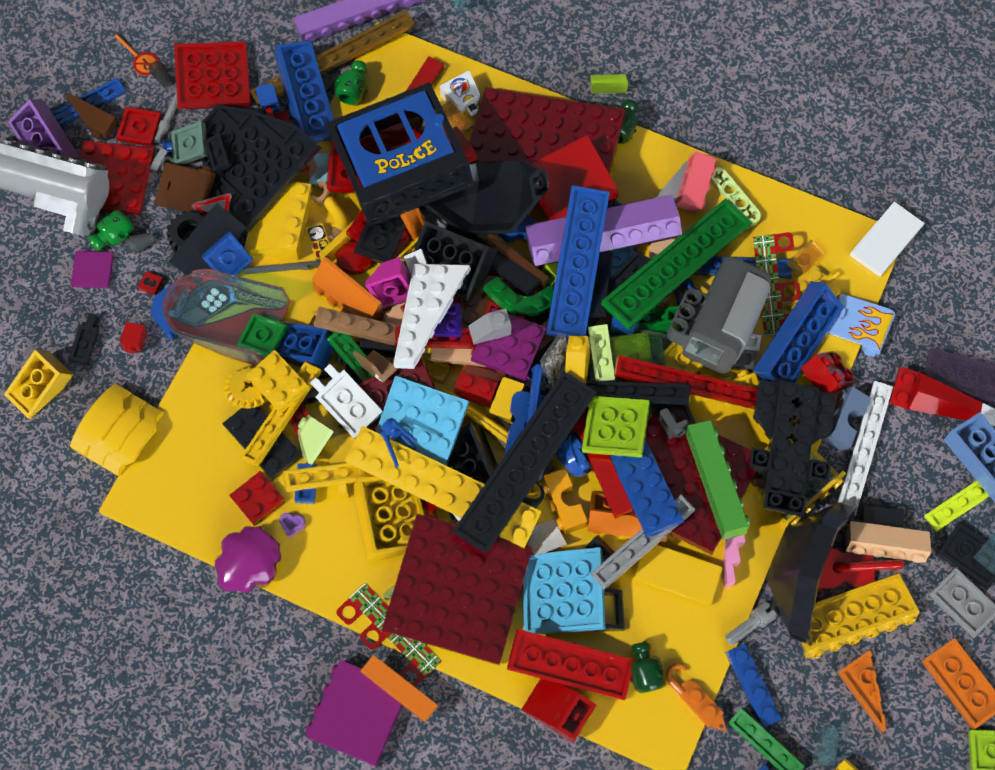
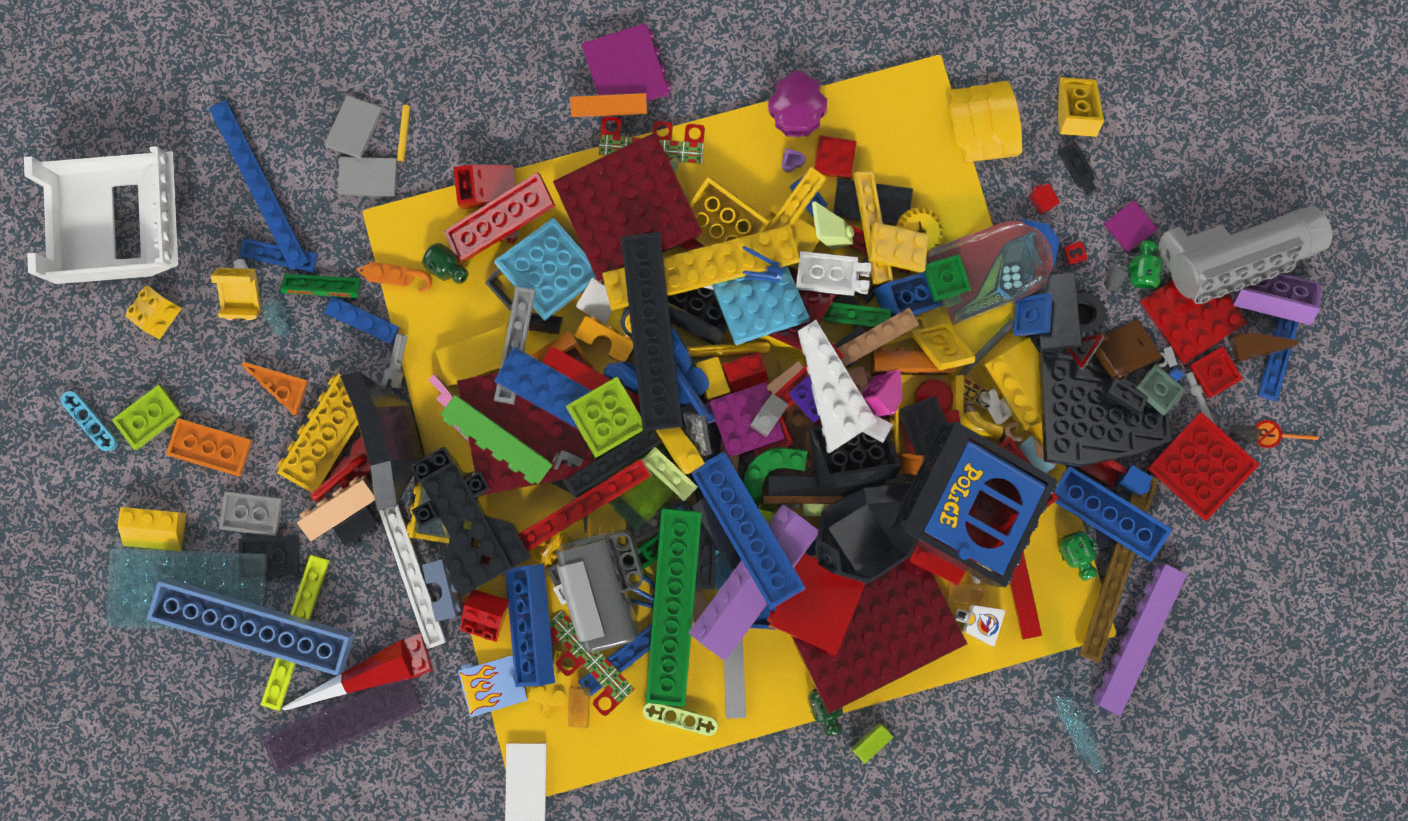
camera: 140 degrees right, 15 degrees up
(313, 282) = (943, 347): none -> yellow plate
(315, 216) = (998, 409): none -> white plate
(376, 365) = (833, 315): medium nougat panel -> none
(696, 182) = (719, 700): coral brick -> none

